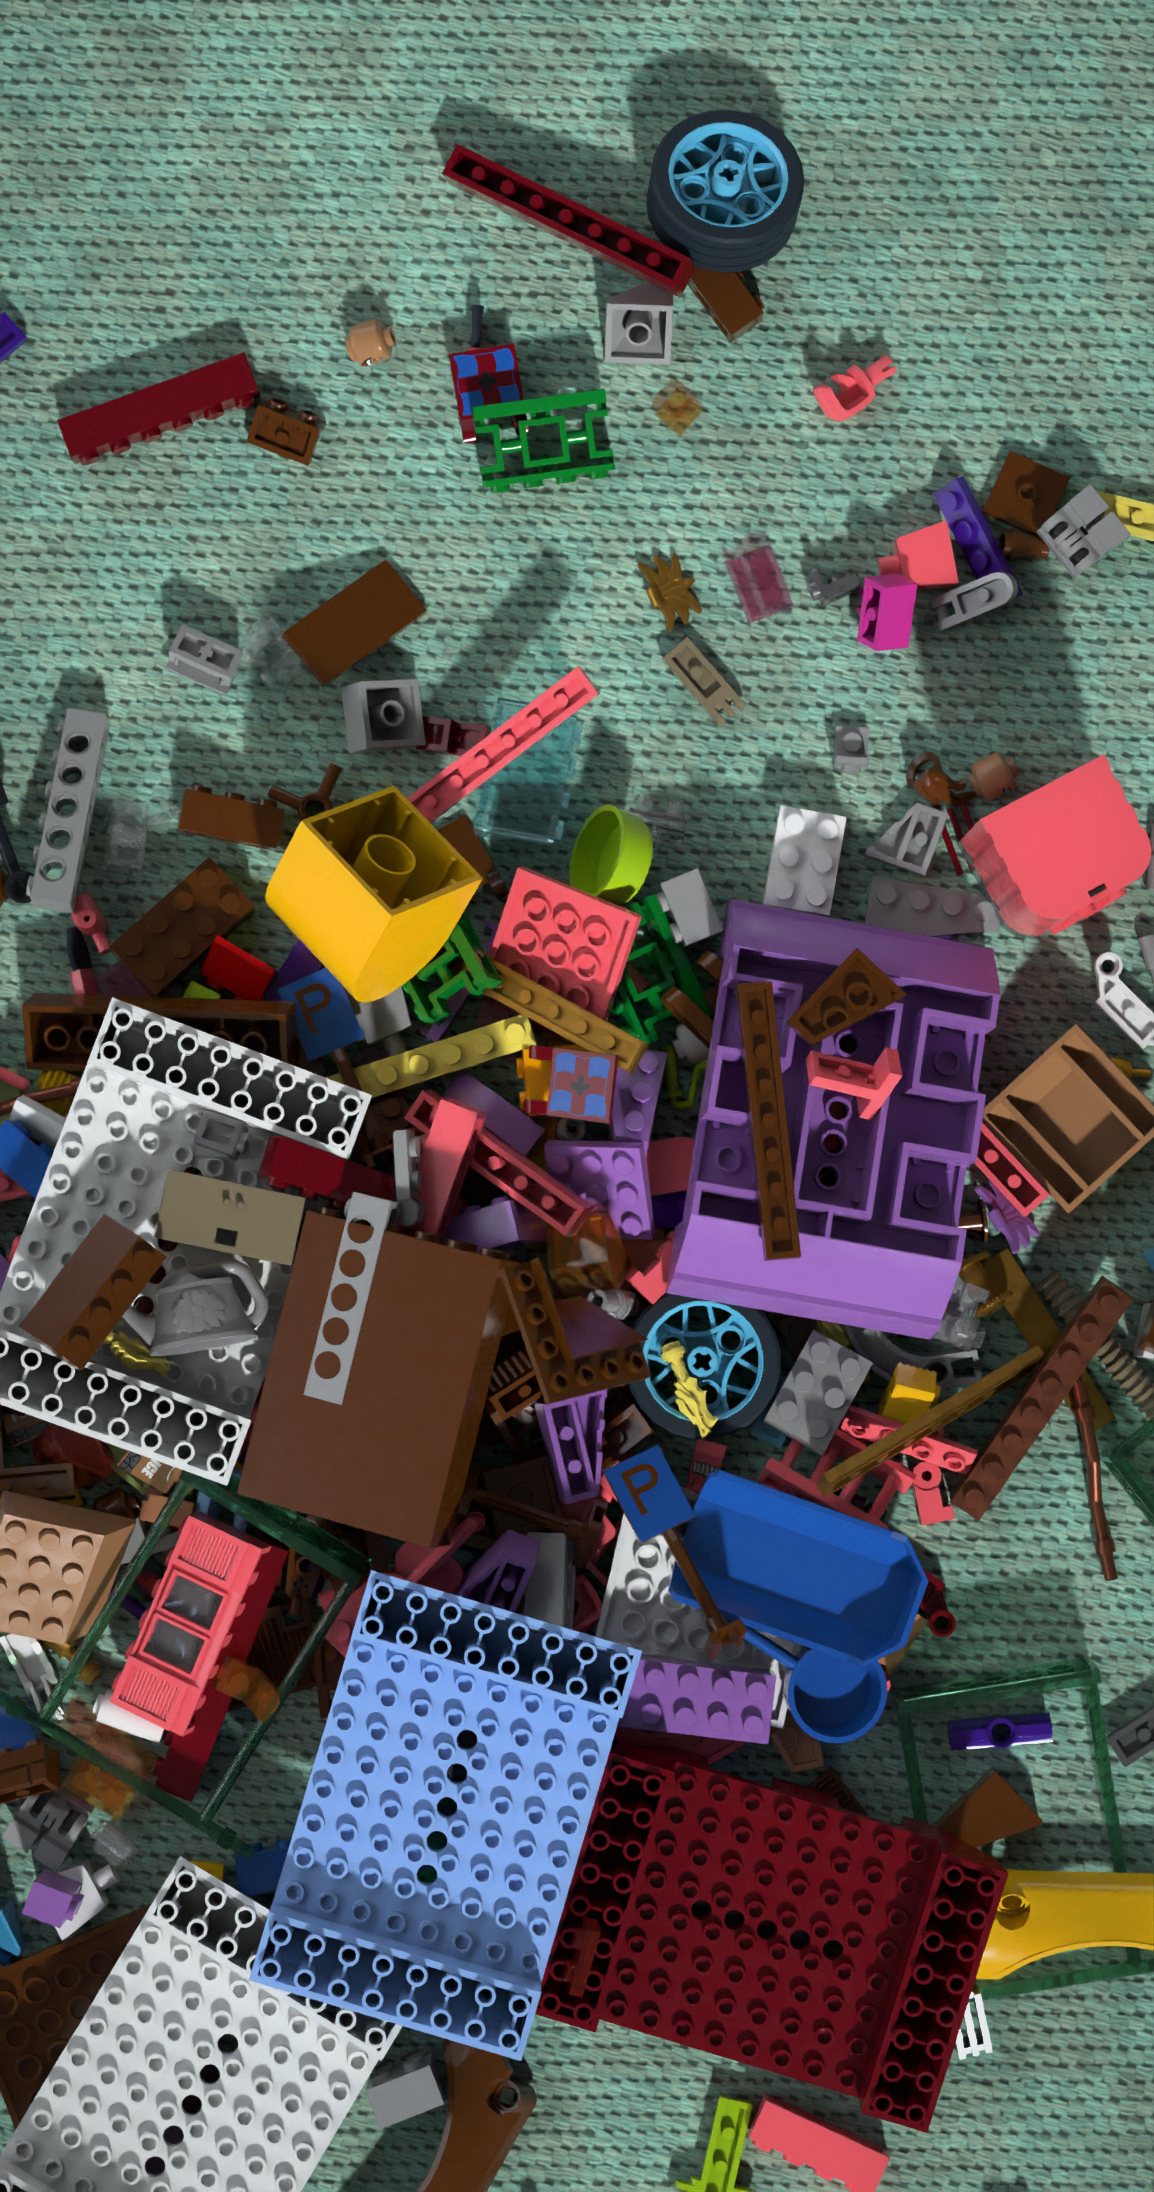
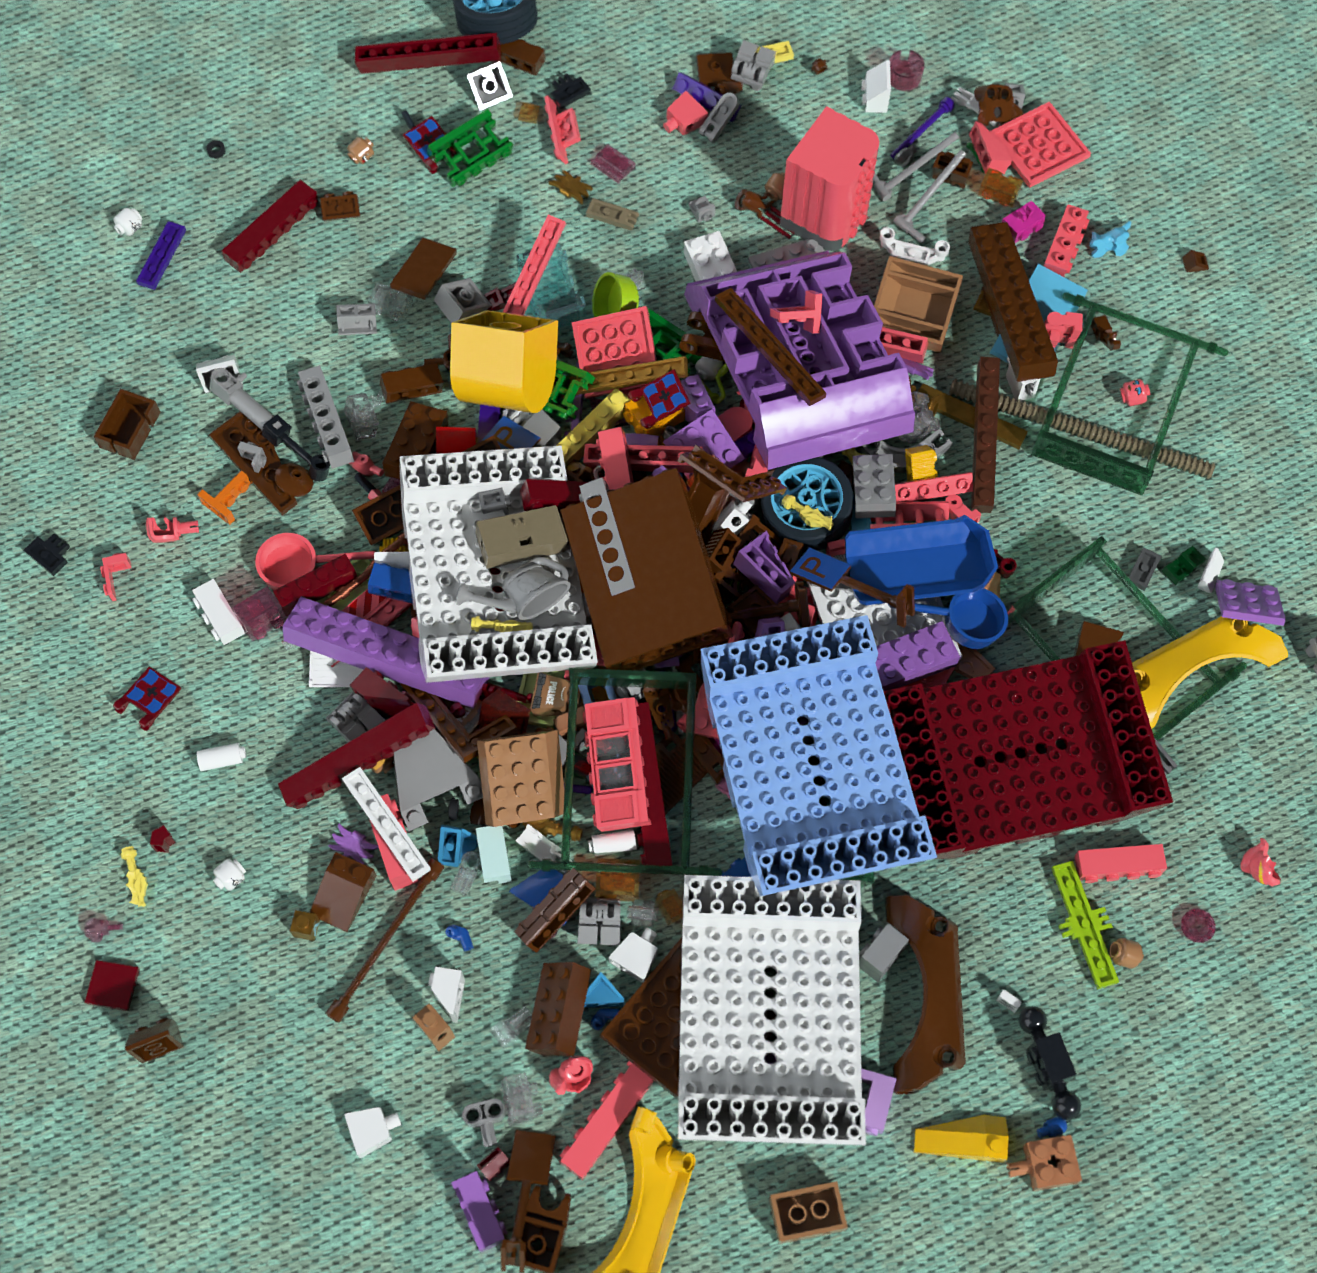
camera: 30 degrees left, 20 degrees down
(53, 1899) = (627, 948): medium lavender brick -> none
(92, 1292) = (470, 594): reddish brown slope -> none
(143, 196) = (216, 143): none -> black piece
(159, 1851) = (669, 906): none -> clear orange brick
(248, 1685) = (668, 782): clear orange bracket -> none
(407, 1176) = (595, 461): light grey hinge -> none
(585, 1944) = (936, 810): clear red plate -> none
(689, 909) = (669, 304): light grey slope -> none
(713, 478) = (563, 128): none -> coral bracket
(764, 407) = (569, 90): none -> black hinge
(837, 588) = (650, 147): flat silver bracket -> none
(844, 999) = (772, 281): reddish brown wing -> none
(855, 389) = (606, 64): coral piece -> none
(886, 611) = (681, 139): dark pink brick -> none
(911, 840) = (756, 232): light grey wing -> none
(930, 1421) = (938, 467): pearl gold tile -> none
(1022, 1729) = (1063, 611): dark purple piece -> none
(1104, 1544) = (1012, 435): copper bar -> none

